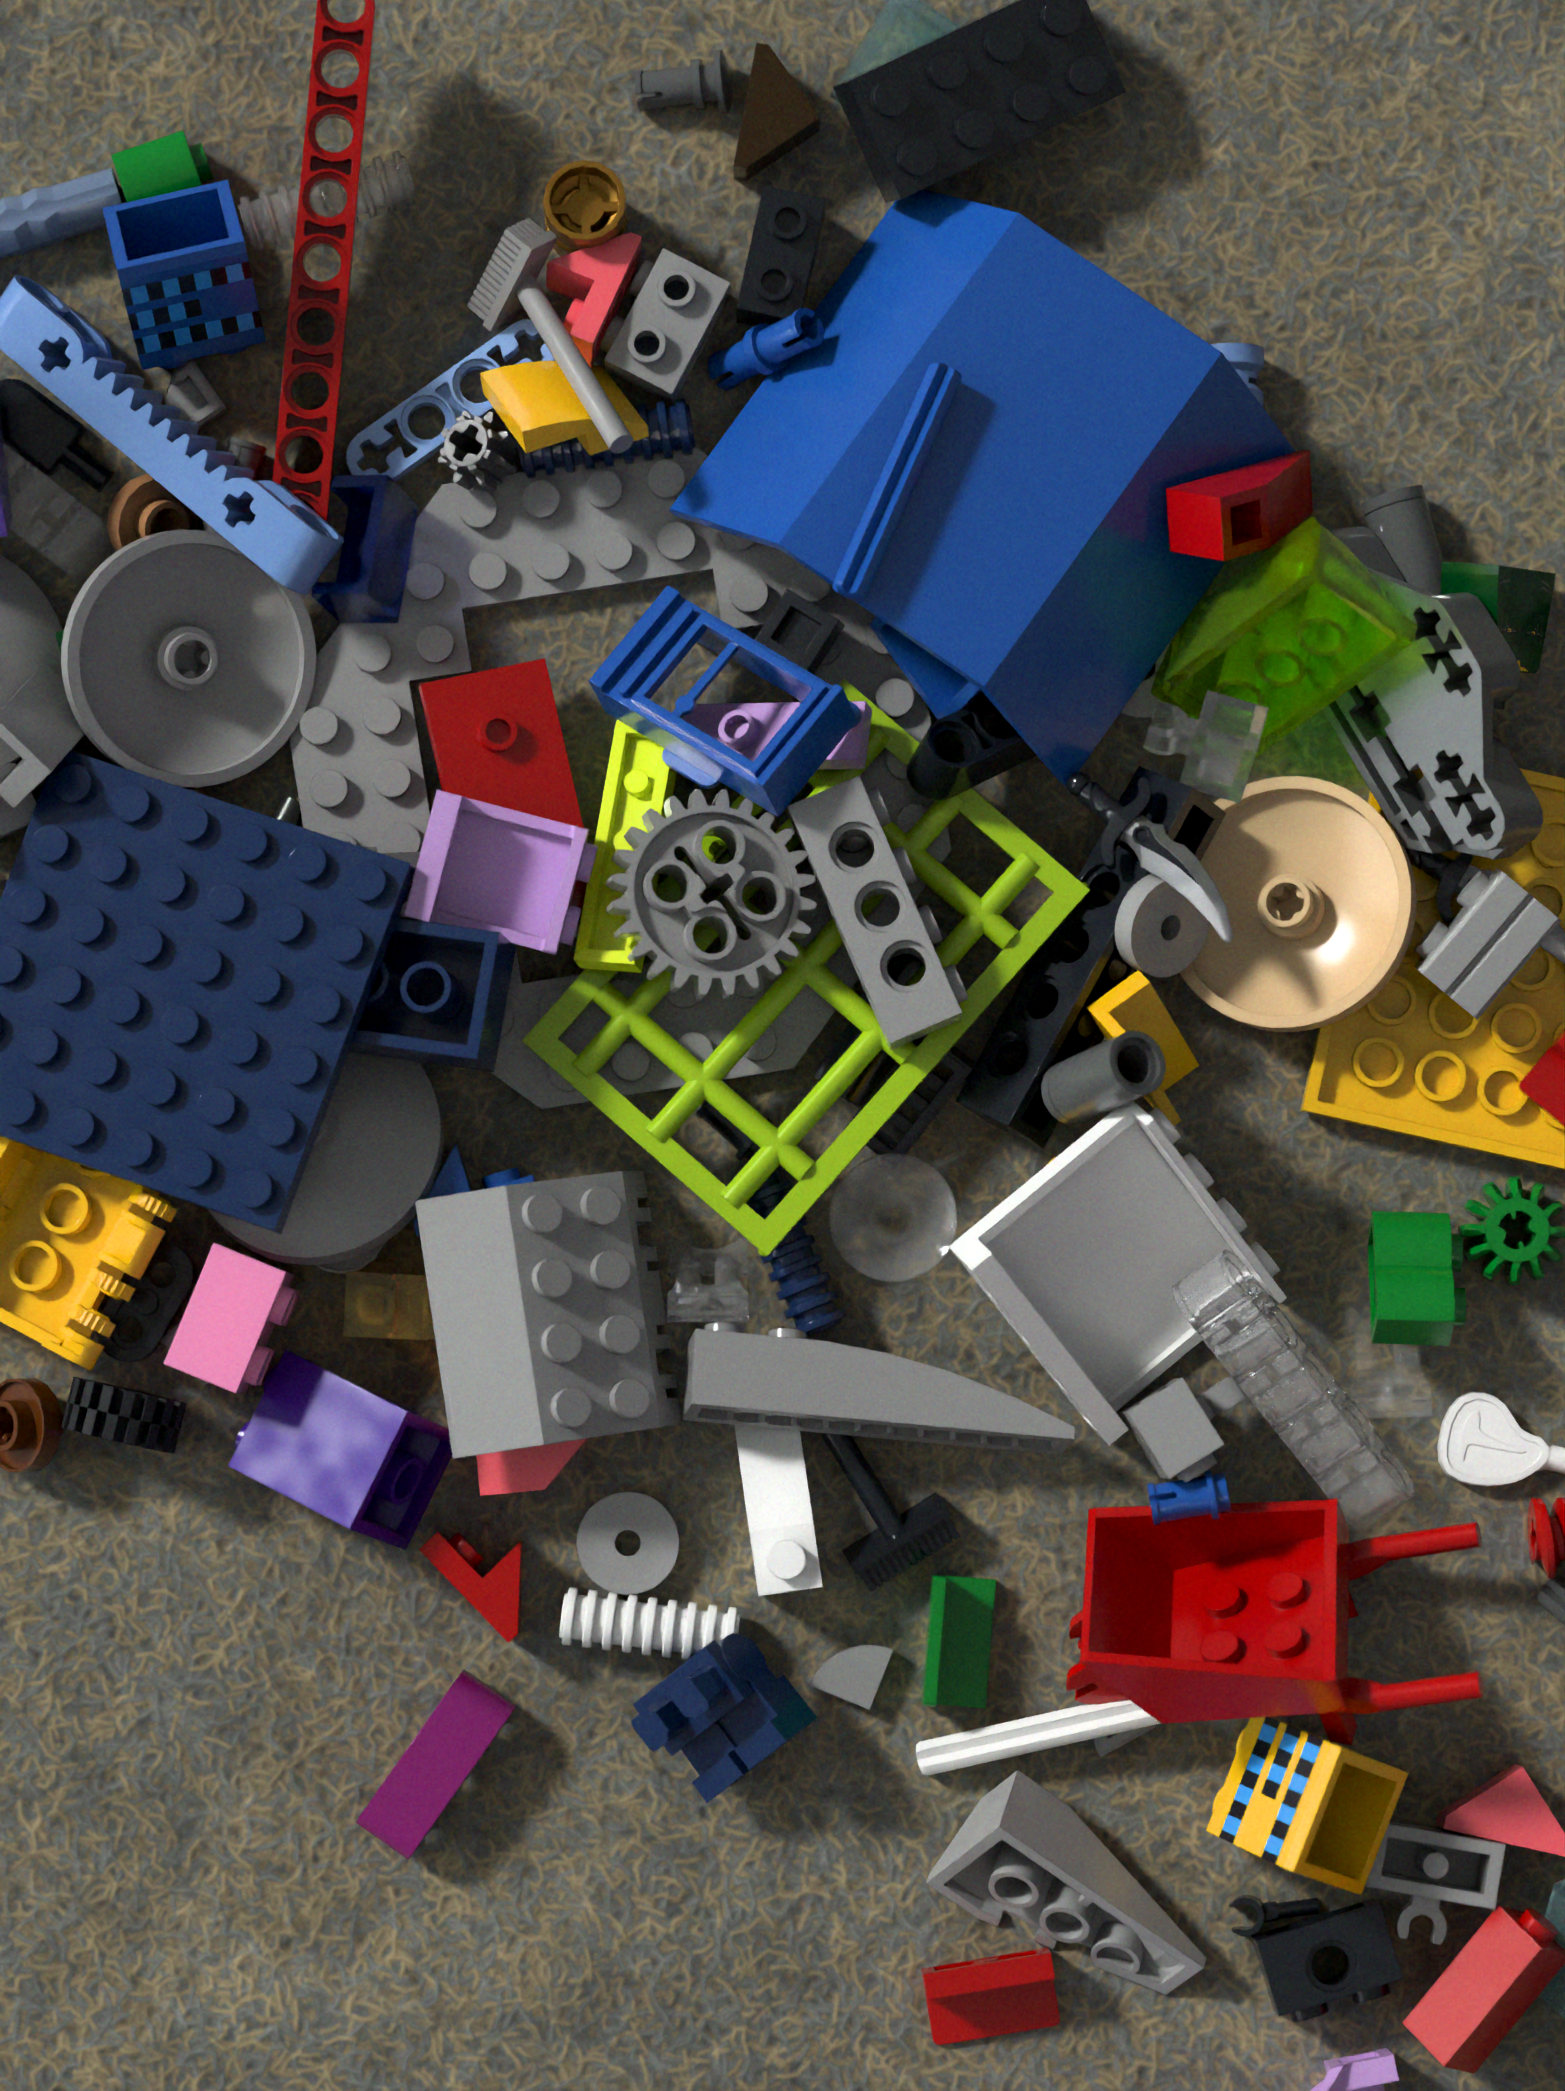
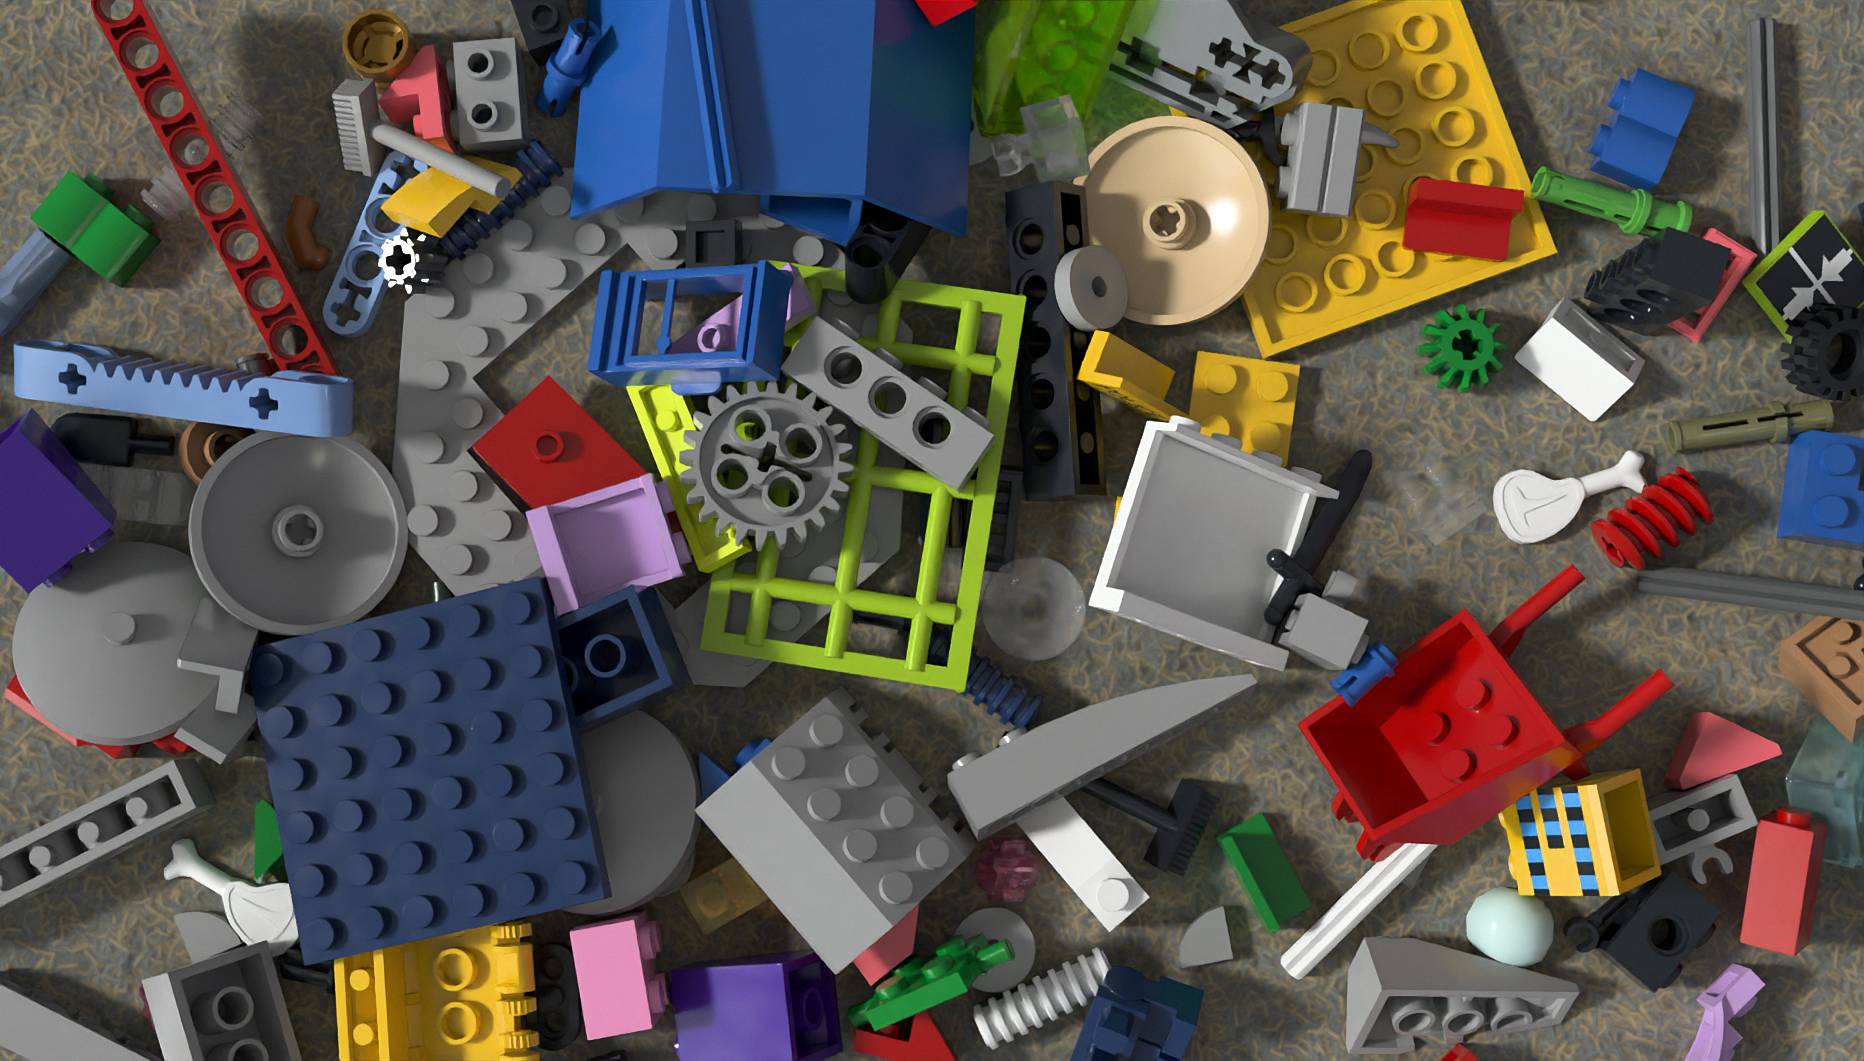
camera: 25 degrees left, 0 degrees up
(184, 275) = (128, 268): blue slope -> none
(193, 395) = (196, 348): light grey tile -> none
(373, 346) = (298, 235): none -> dark orange arm
(373, 551) = (384, 375): clear blue panel -> none
(530, 1524) = (930, 981): none -> green plate
(693, 1469) = (1007, 870): none -> clear pink gear
(697, 1302) = (935, 754): clear piece -> none
(1103, 1077) = (1122, 417): dark grey pin -> none
(1153, 847) = (1052, 238): piece -> none
(1178, 1862) = (1510, 927): none -> light aqua hair
(1193, 1356) = (1300, 569): none -> black sword
(1250, 1144) = (1245, 400): none -> yellow plate
(1293, 1389) = (1384, 552): clear beam -> none
(1413, 1279) = (1417, 424): green brick -> none

